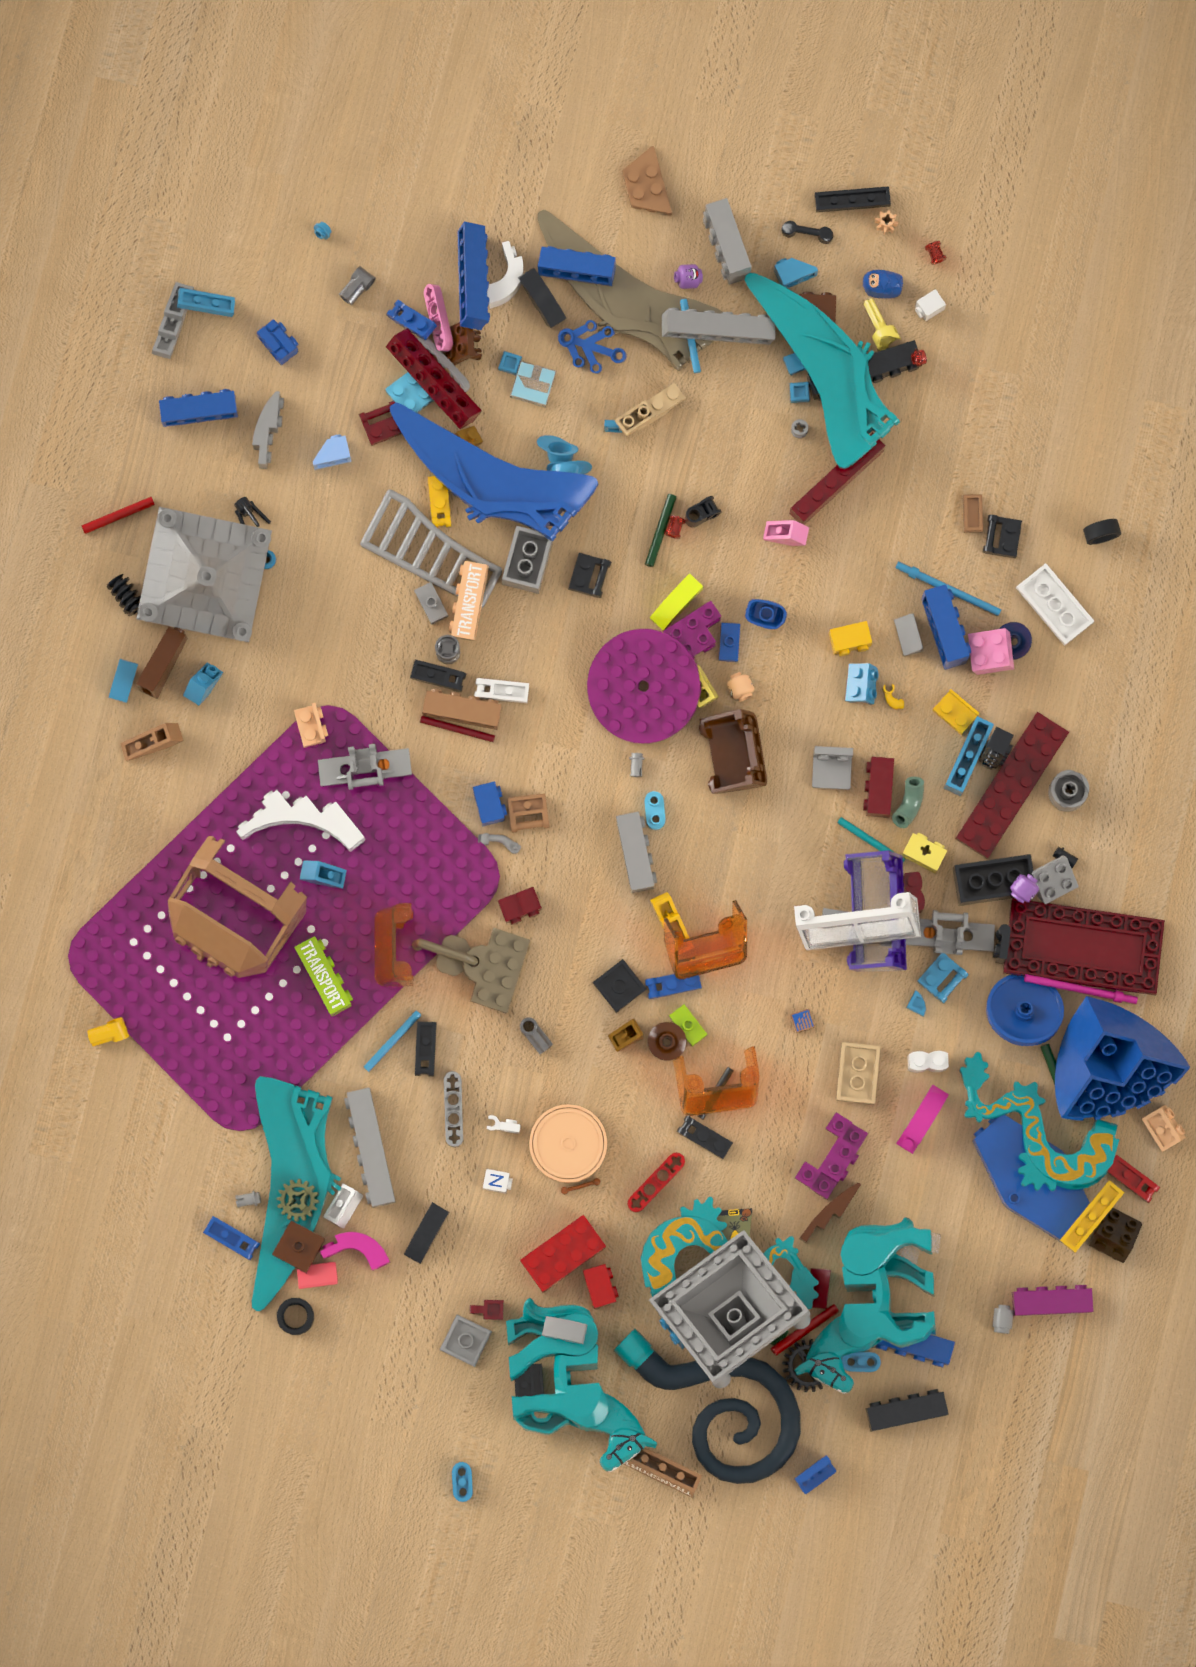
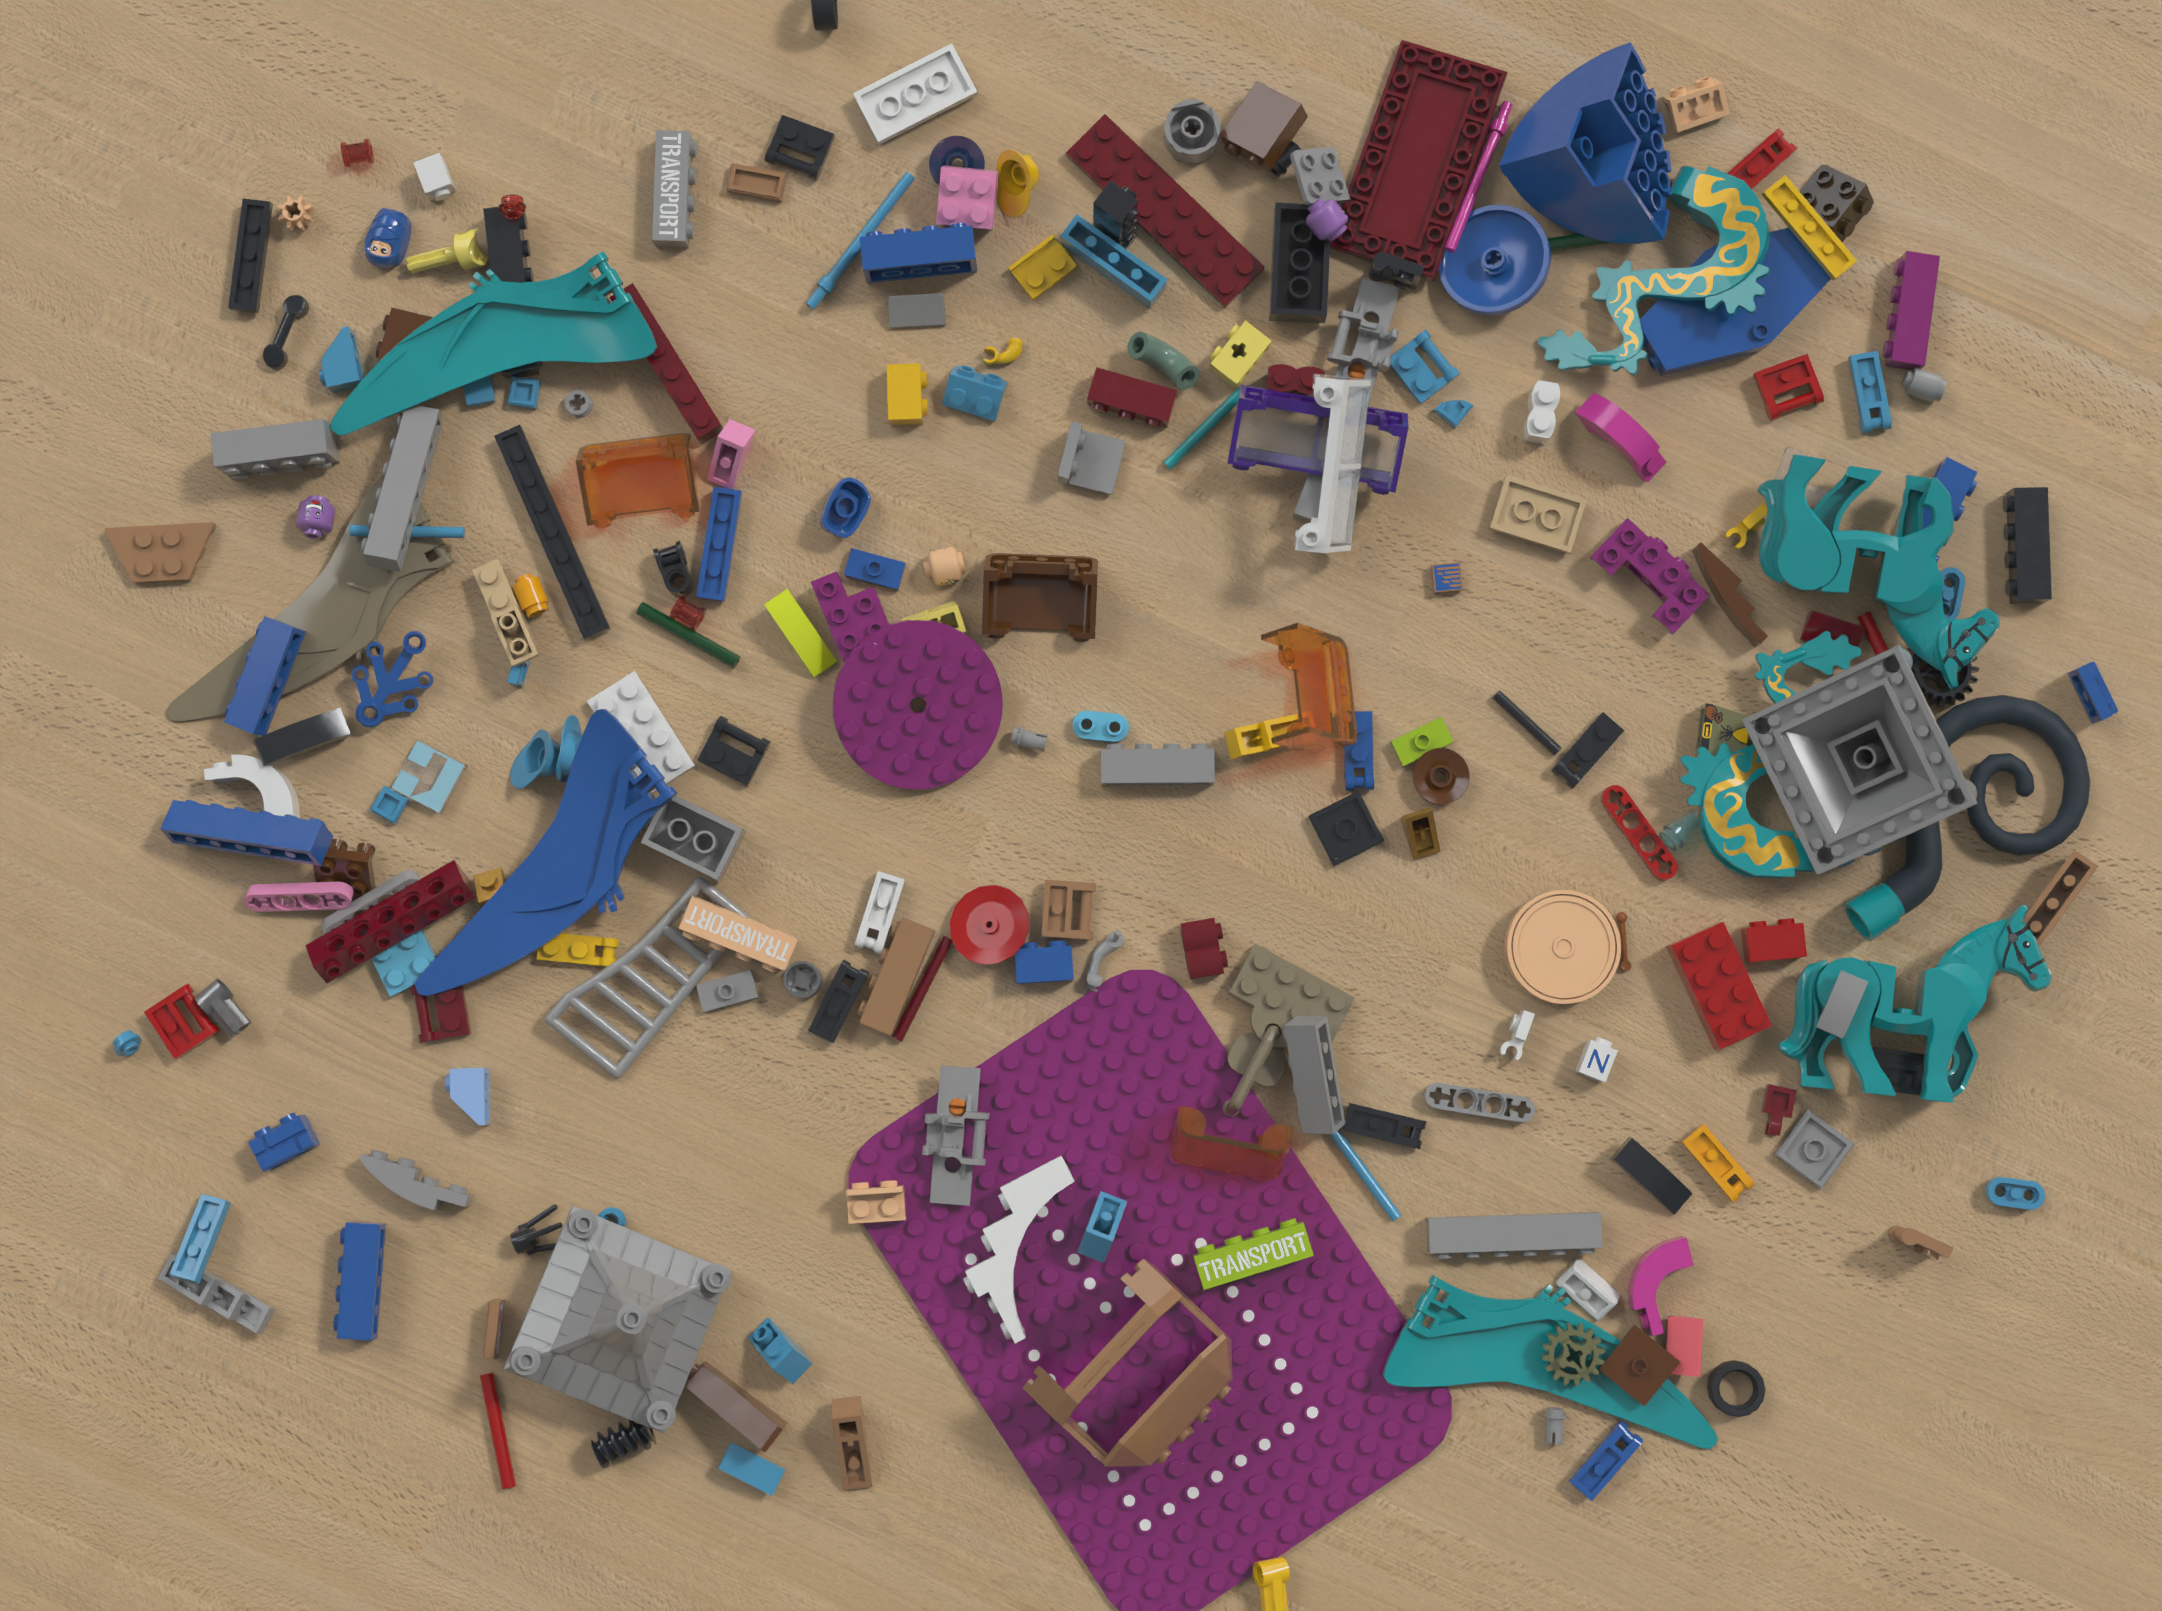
camera: 75 degrees left, 5 degrees up
(183, 498) = (493, 1329): none -> medium nougat tile
(338, 257) = (173, 1026): none -> red plate
(412, 320) = (294, 936): blue plate -> none
(415, 1425) = (1924, 1244): none -> medium nougat plate
(444, 1276) = (1717, 1162): none -> light orange plate
(450, 992) = (1314, 1074): none -> light grey brick
(507, 762) = (989, 925): none -> red piece
(536, 1037) = (1398, 962): flat silver piece -> none
(594, 515) = (645, 722): none -> white plate
(662, 1208) = (1680, 830): none -> clear light blue cone
(665, 423) = (530, 595): none -> light orange brick
(697, 1100) = (1538, 750): clear orange windscreen -> none
(710, 429) = (552, 532): none -> black plate
(724, 537) = (719, 544): none -> blue plate
(757, 475) = (637, 477): none -> clear orange windscreen
(883, 1218) = (1752, 521): none -> yellow plate
(955, 459) = (673, 189): none -> light grey brick
(987, 1224) = (1785, 378): none -> red plate
(991, 1283) = (1869, 391): none -> dark azure plate
(1011, 682) = (1016, 179): none -> yellow piece
(1082, 837) = (1263, 126): none -> brick

